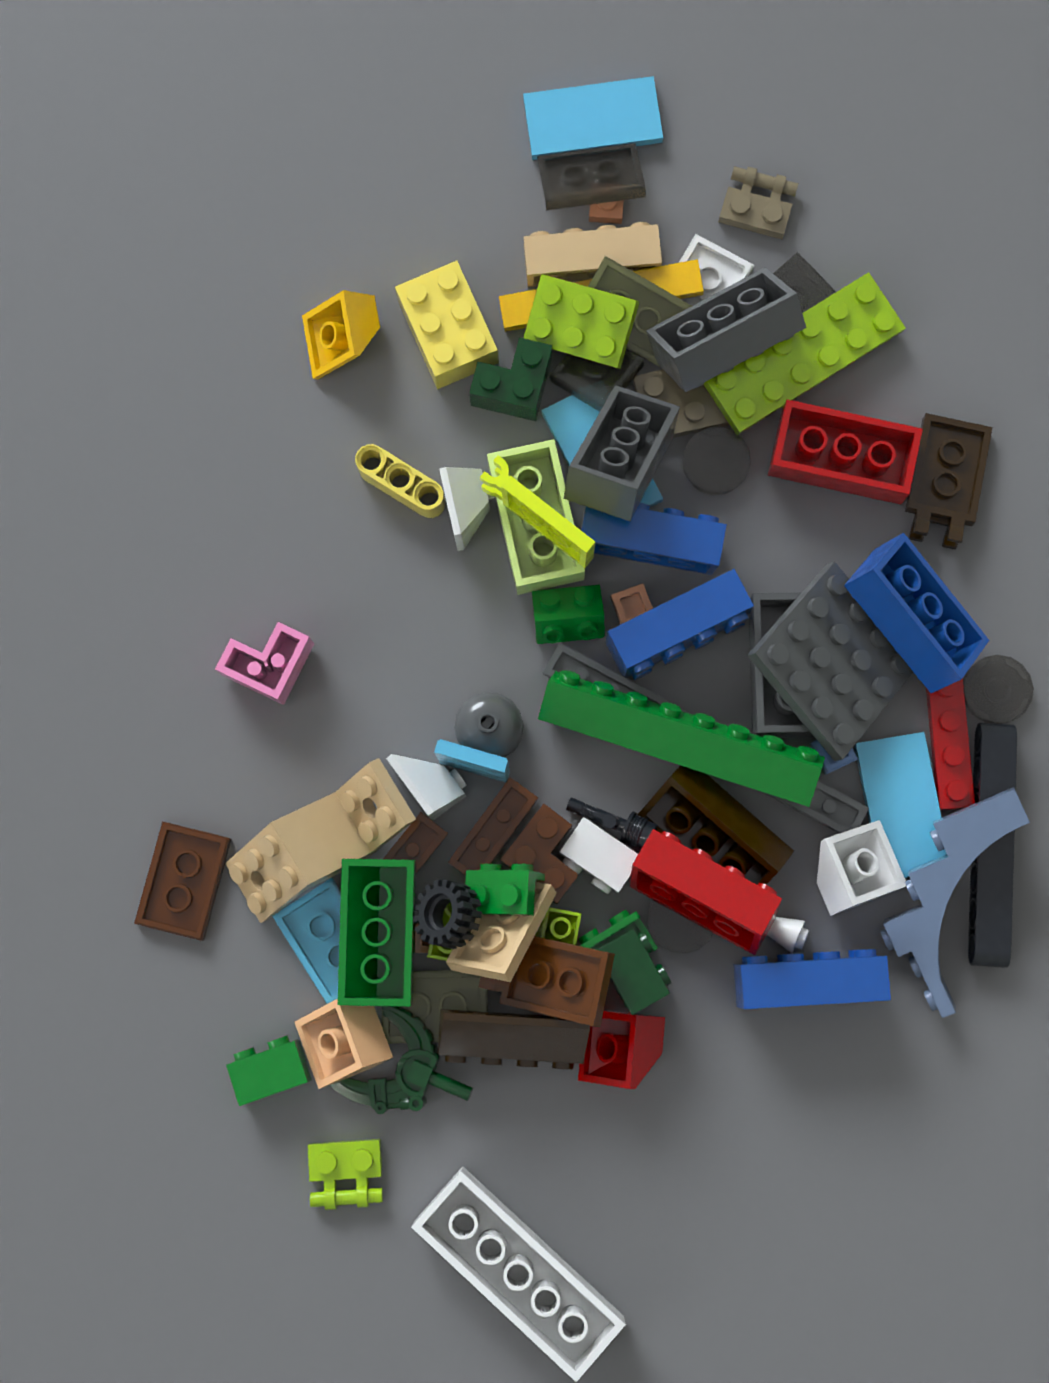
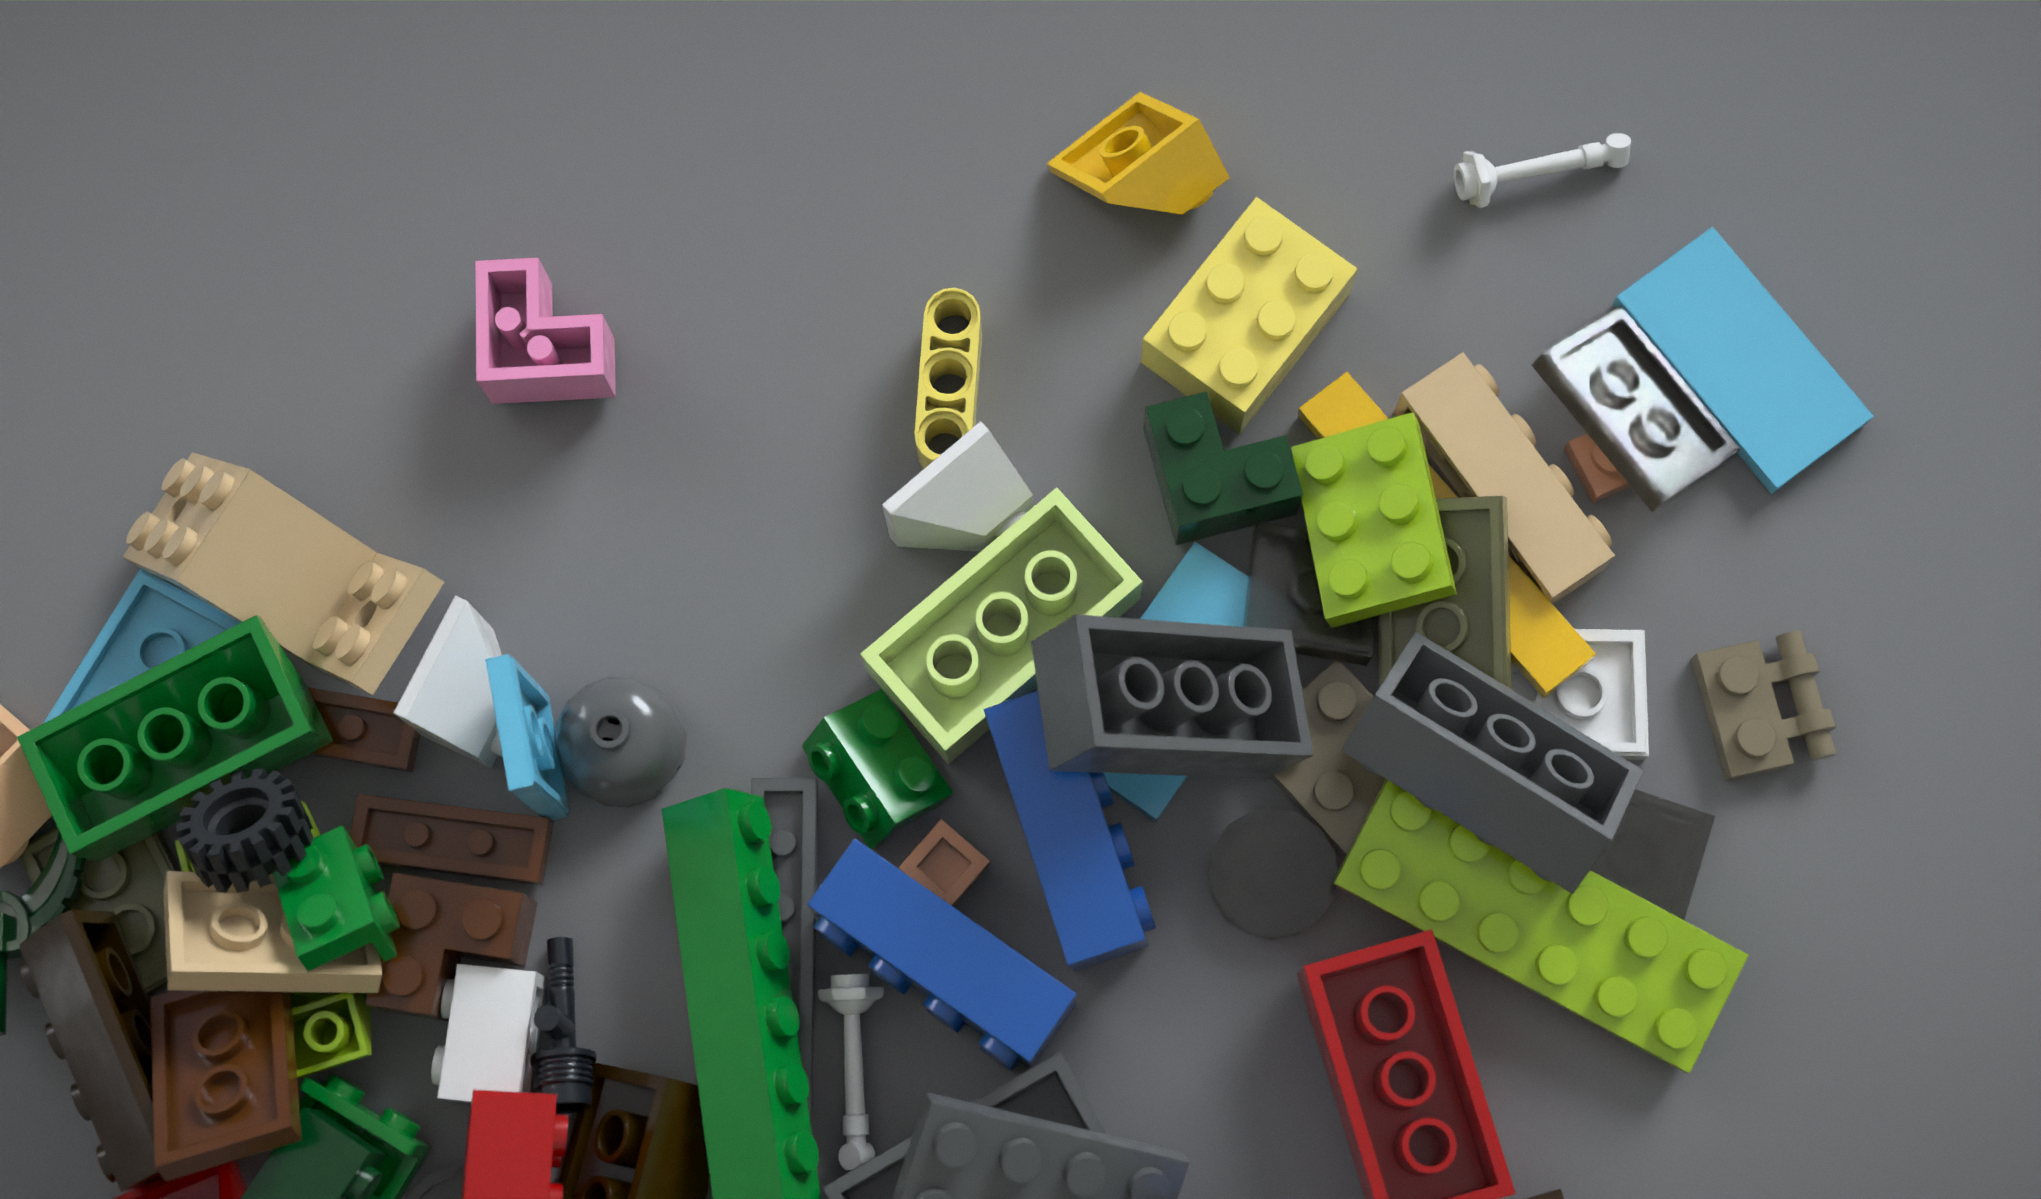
camera: 60 degrees right, 5 degrees down
(182, 881) = (133, 405): reddish brown tile -> none
(438, 184) = (1478, 178): none -> white piece
(538, 514) = (998, 541): neon yellow tile -> none
(671, 680) = (851, 997): none -> white piece

